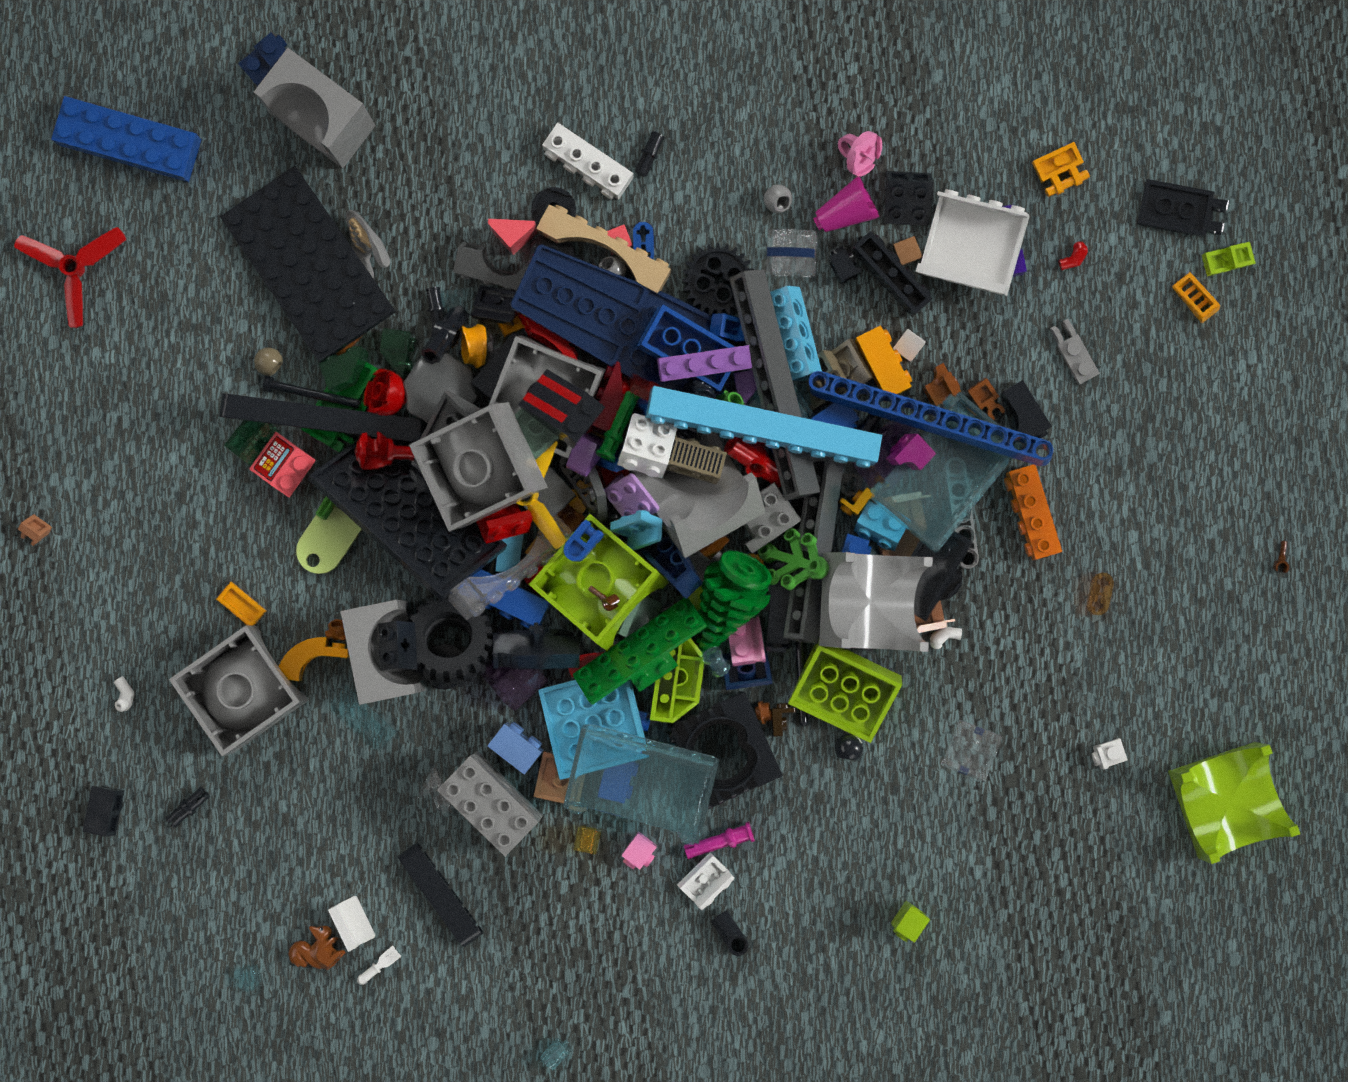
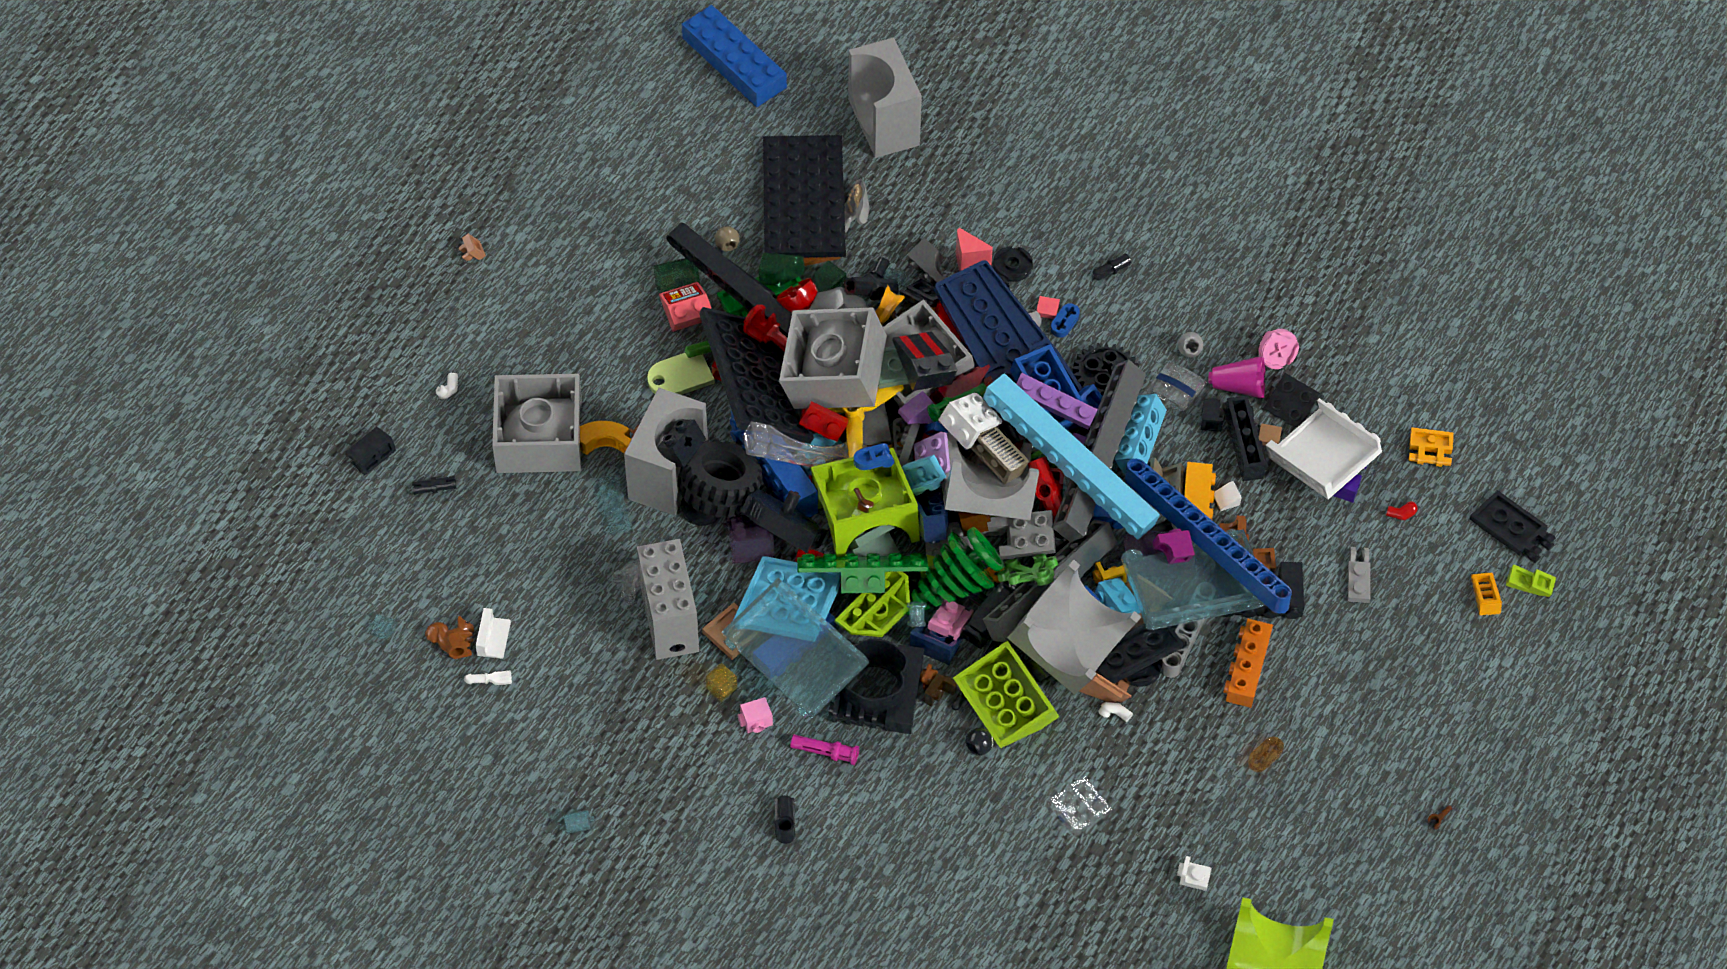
camera: 35 degrees right, 30 degrees down
(86, 256) = (635, 108): red piece -> none
(241, 604) = (587, 384): light orange tile -> none
(439, 895) = (576, 655): black beam -> none
(516, 747) = (715, 581): medium blue brick -> none
(563, 228) = (1017, 277): tan arch -> none
(587, 161) = (1061, 245): white brick -> none
(706, 881) = (792, 767): white bracket -> none
(909, 922) = (938, 890): lime brick -> none

